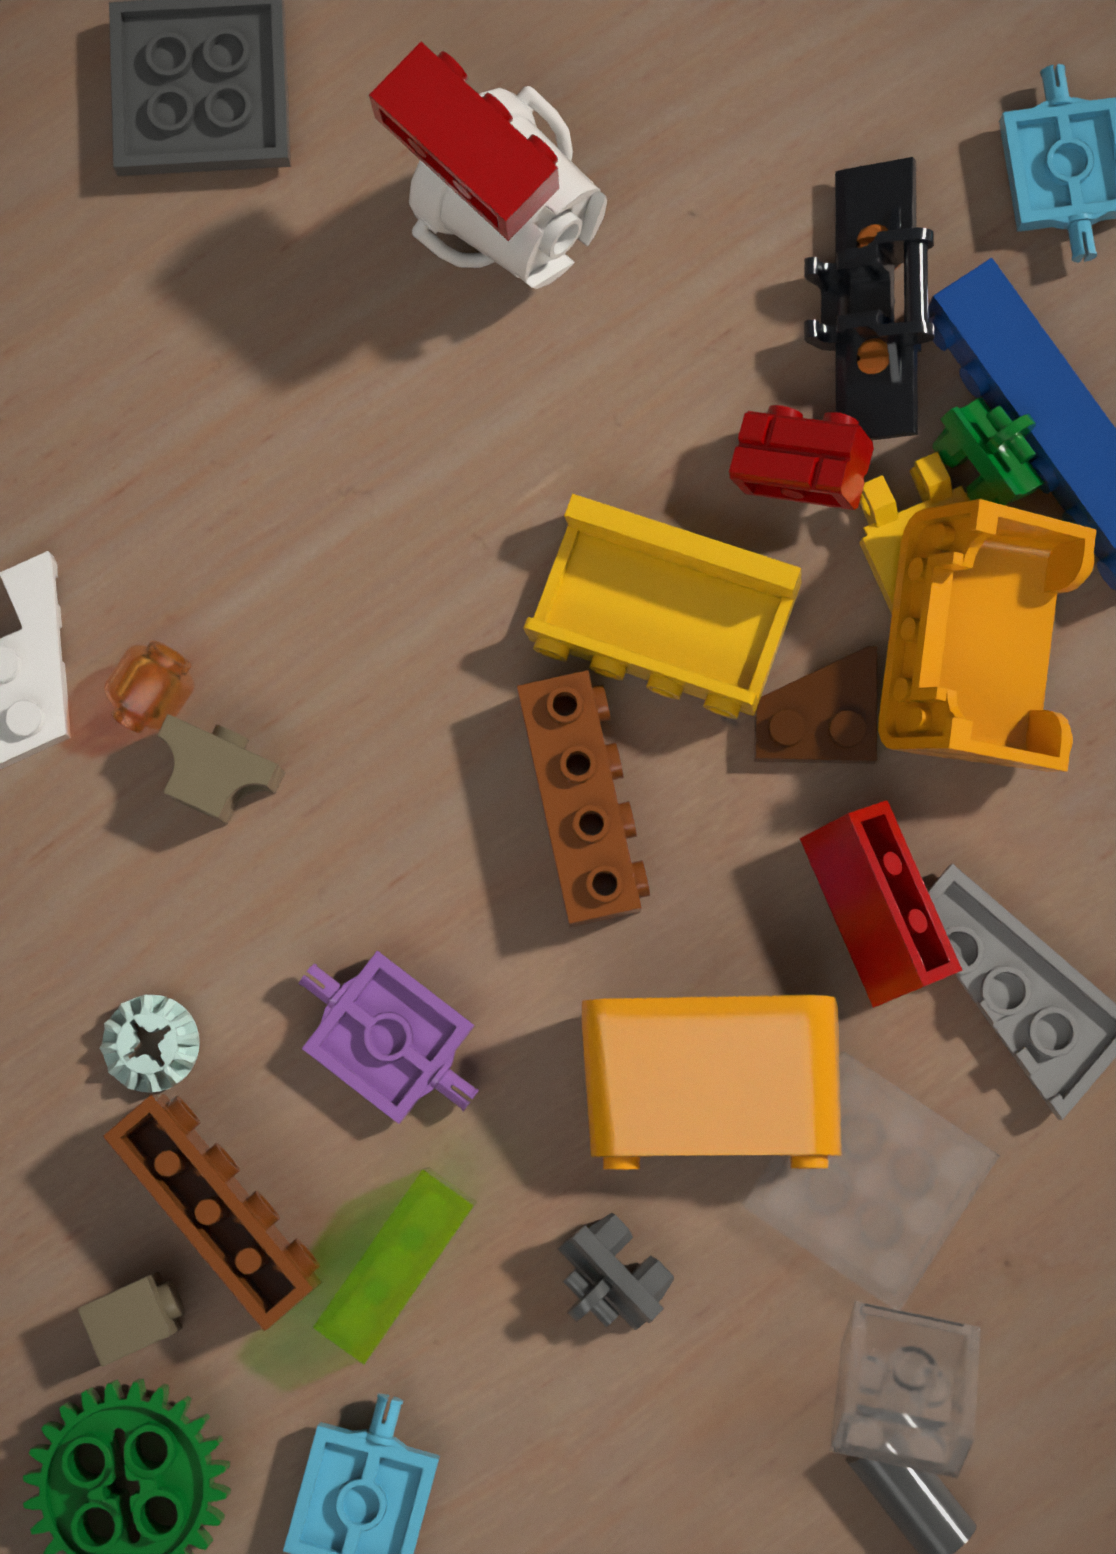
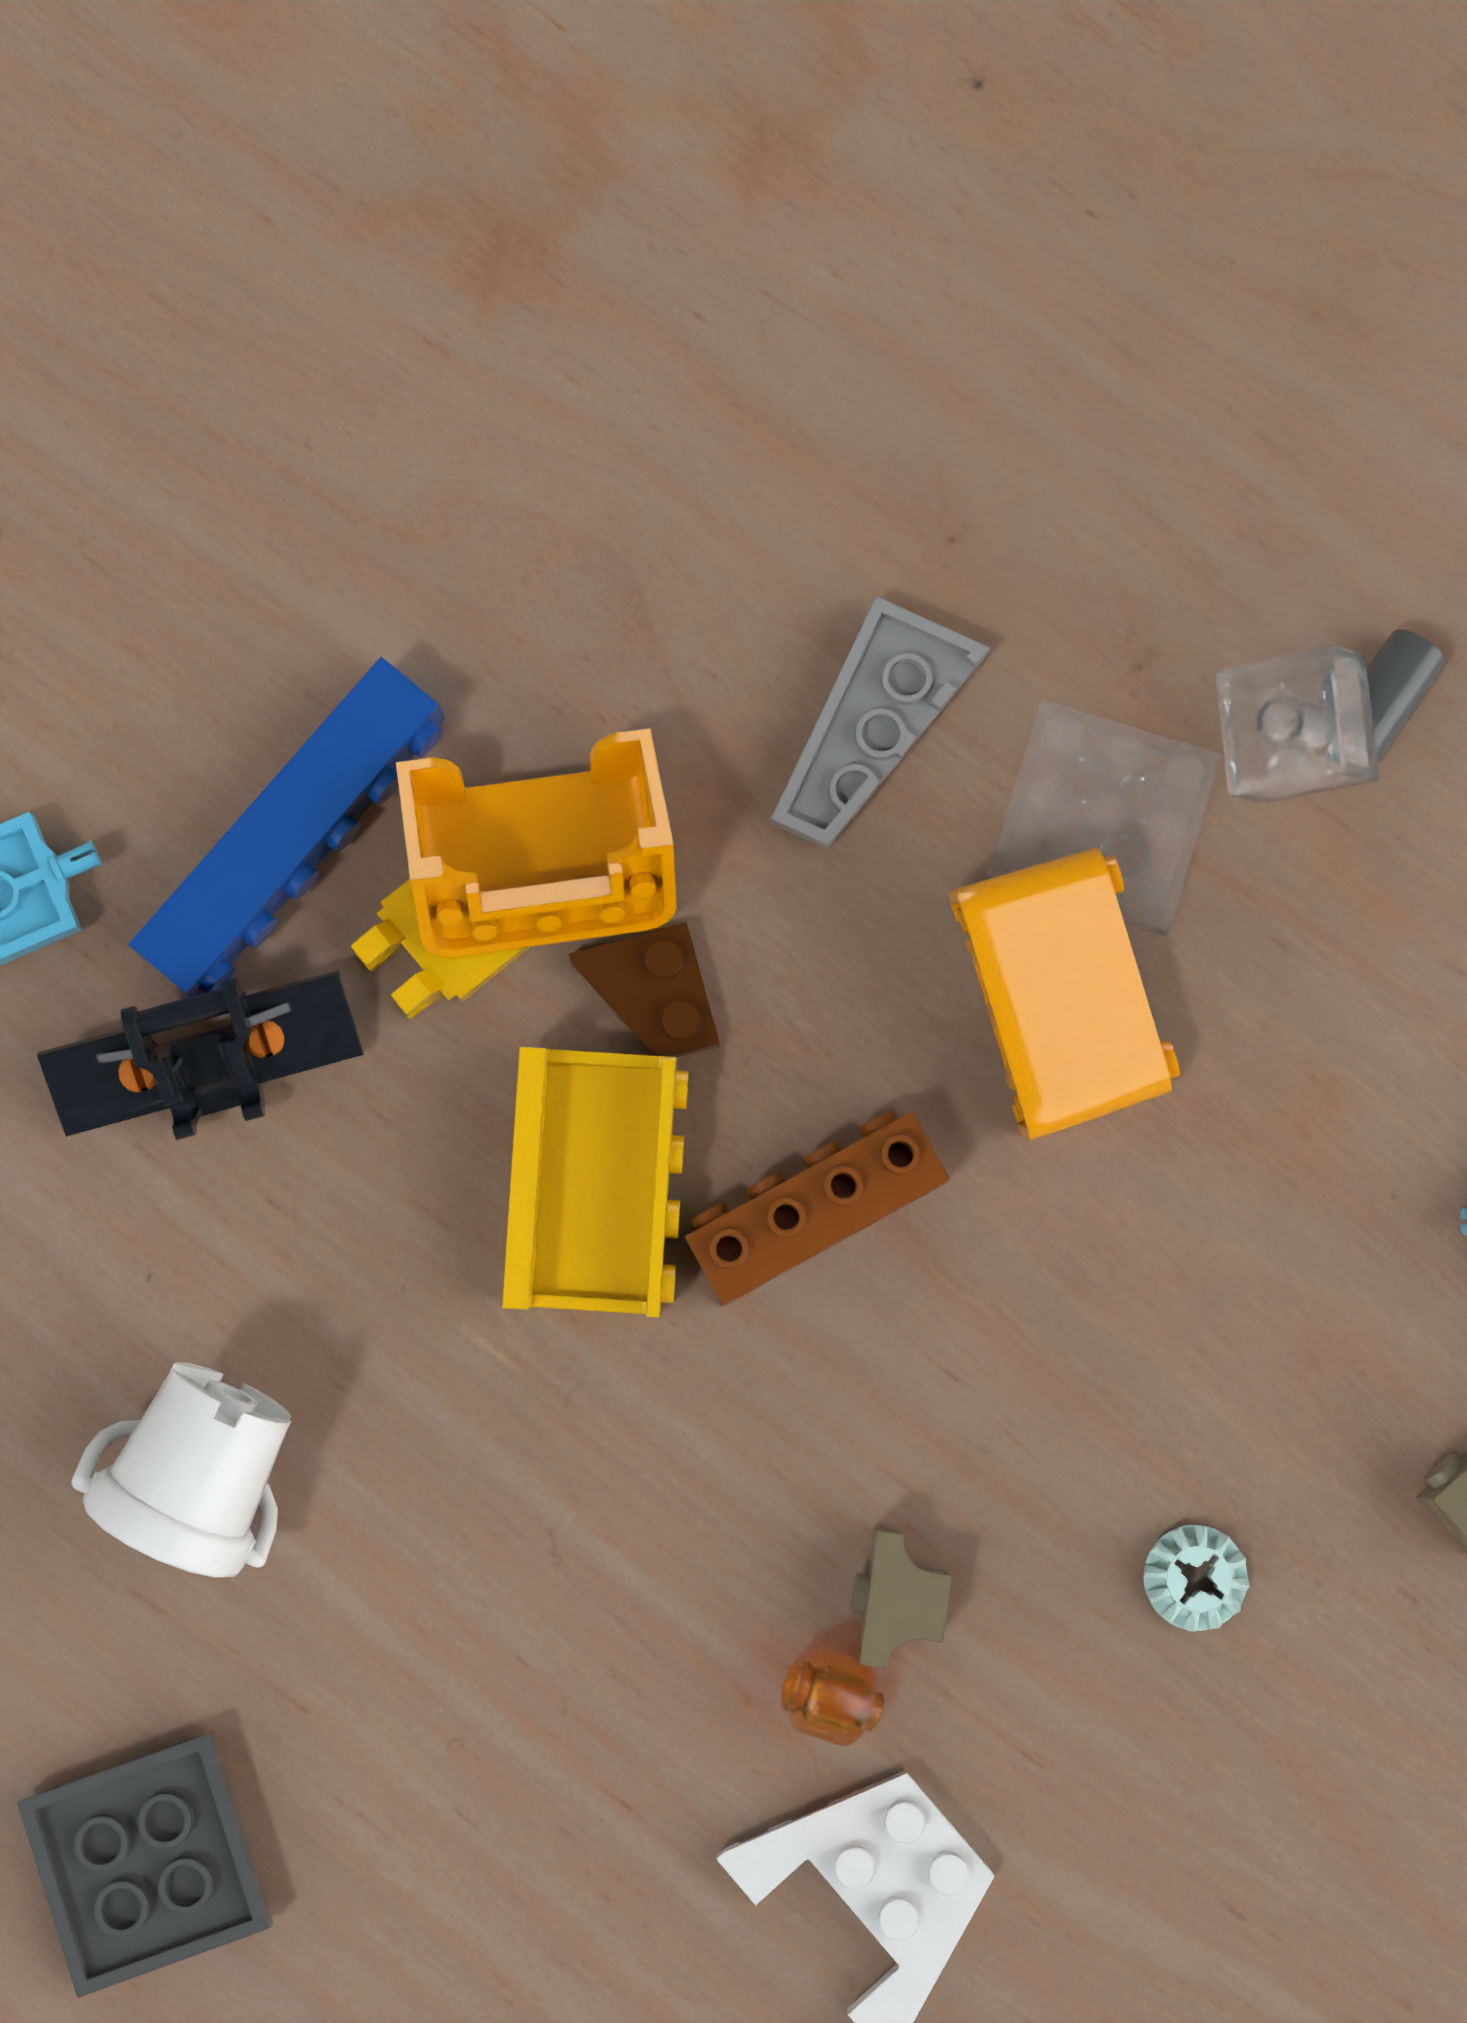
camera: 115 degrees left, 0 degrees up
(213, 1209) = (1344, 1453): dark orange brick -> none
(388, 1037) = (1114, 1332): medium lavender plate -> none
(395, 1265) = (1337, 1254): clear neon green brick -> none
(466, 139) = (167, 1521): red brick -> none
(605, 1283) = (1288, 1013): dark grey hips -> none
(802, 457) = (396, 1081): red brick -> none
(880, 903) = (834, 877): red brick -> none
(994, 448) = (335, 888): green hips -> none

